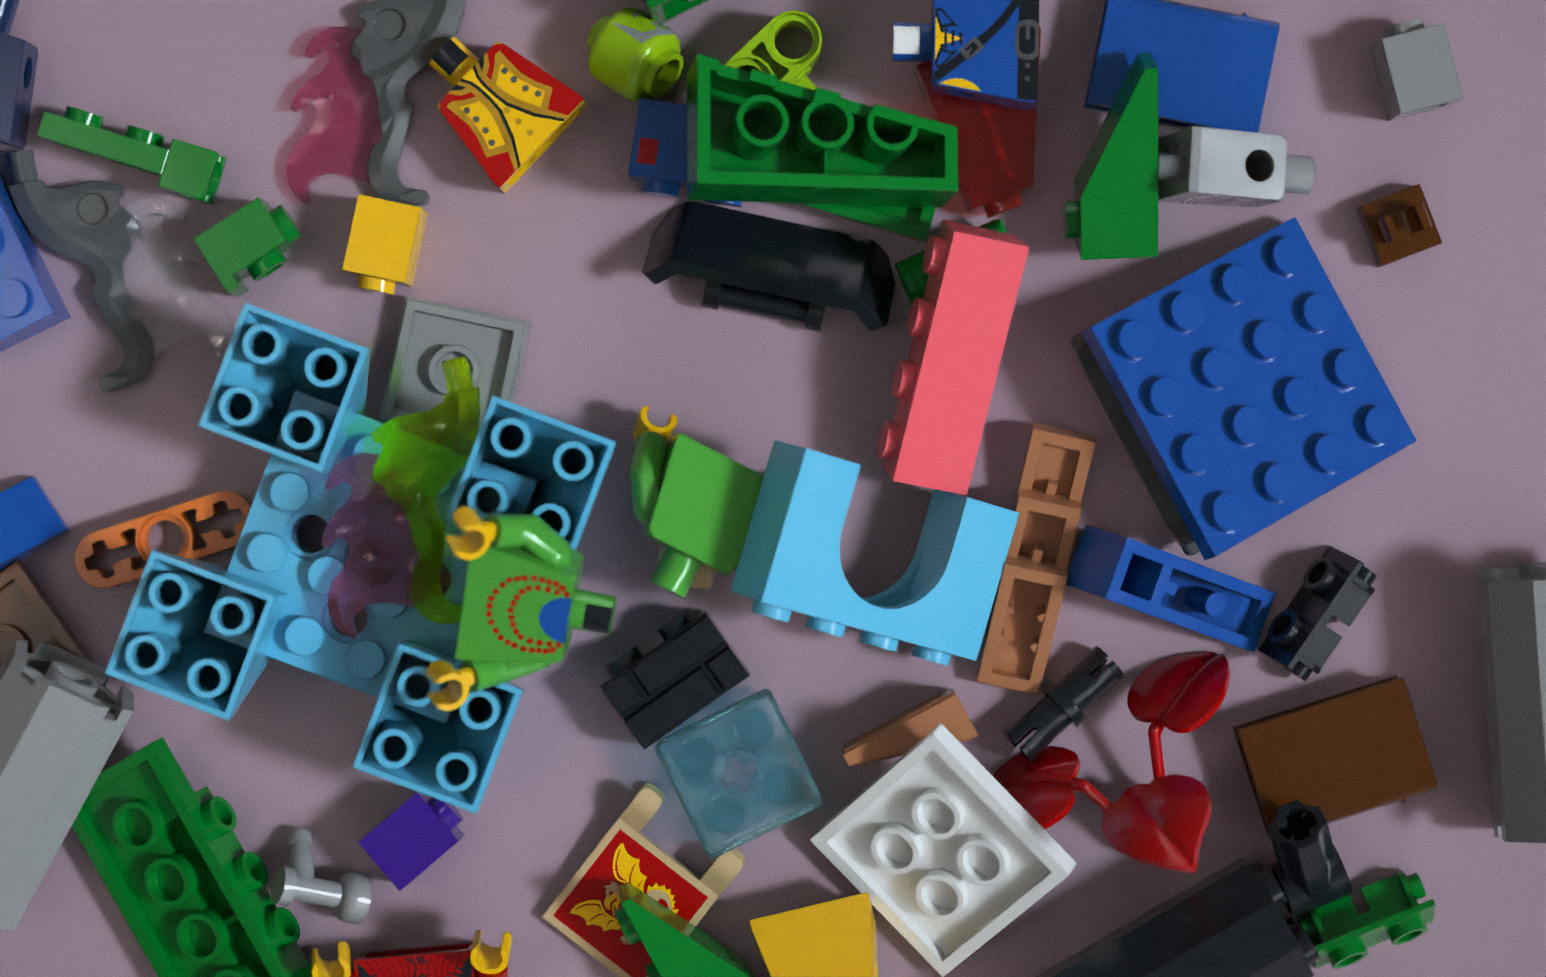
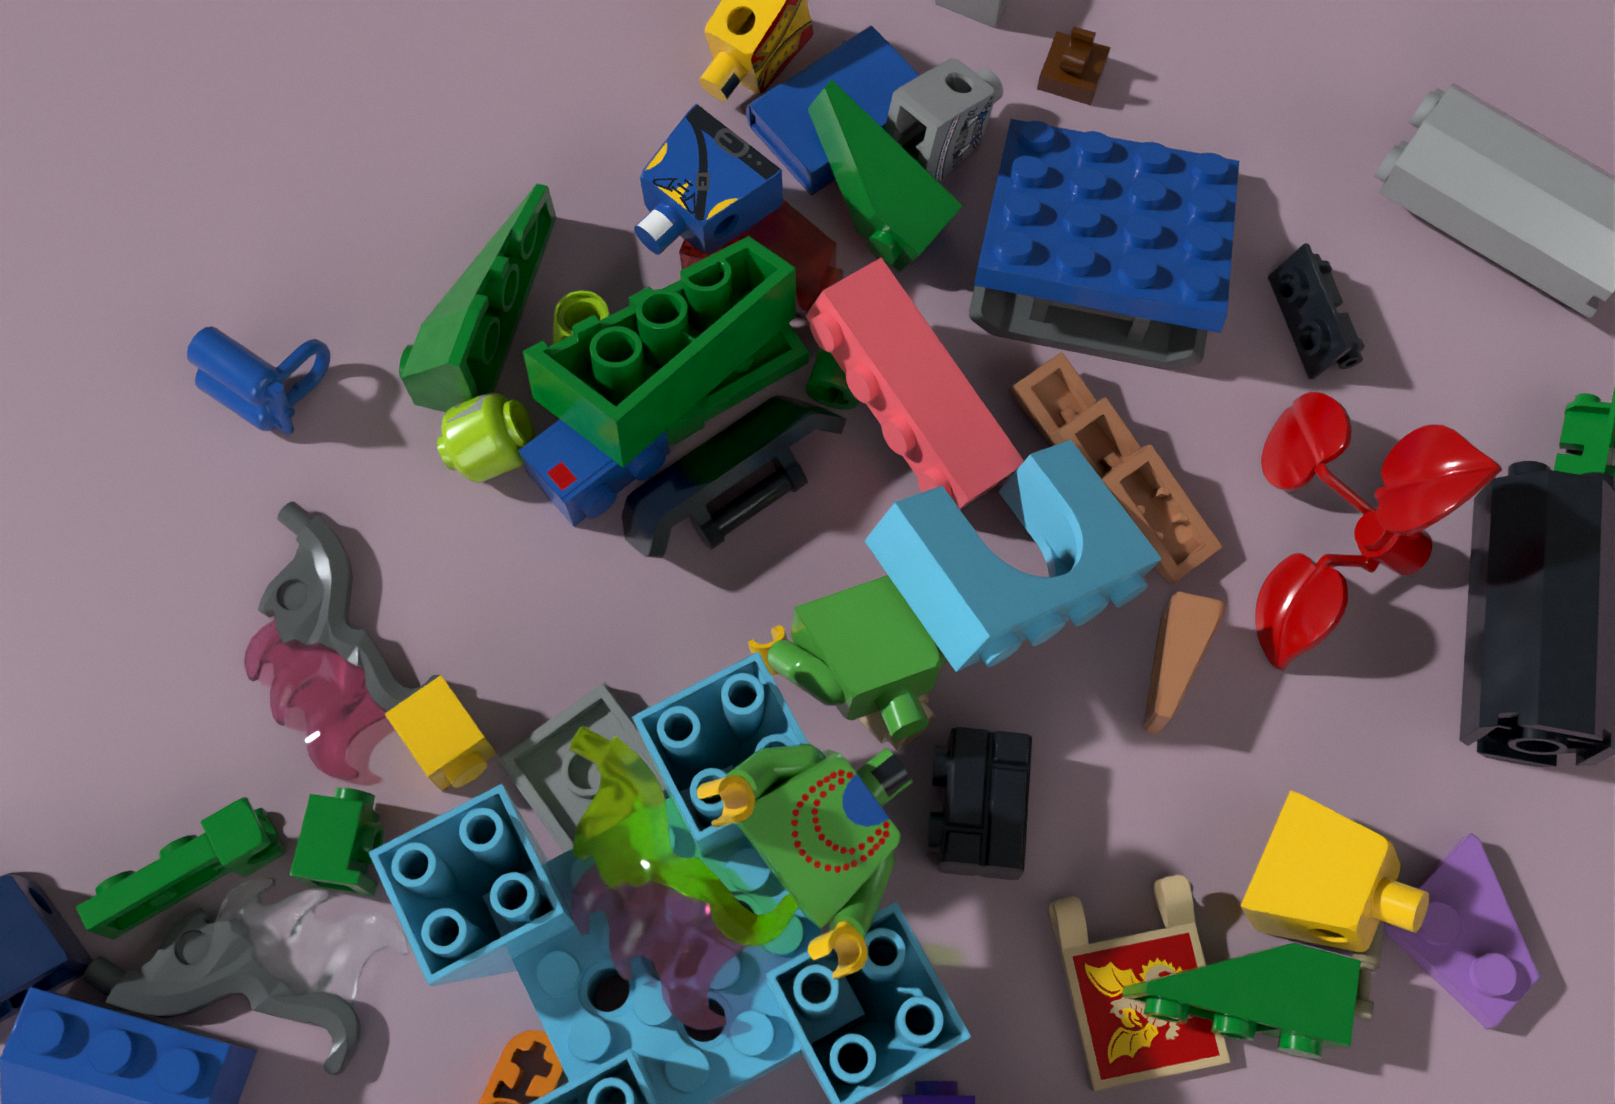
camera: 50 degrees left, 20 degrees down
(503, 107) = (432, 561): torso -> none
(724, 813) = (1142, 794): clear light blue brick -> none
(943, 850) = (1302, 702): white plate -> none
(1063, 704) = (1245, 534): black pin -> none
(1169, 587) = (1210, 391): blue slope -> none
(1306, 859) = (1508, 435): black piece -> none
(1338, 753) = (1440, 370): reddish brown piece -> none

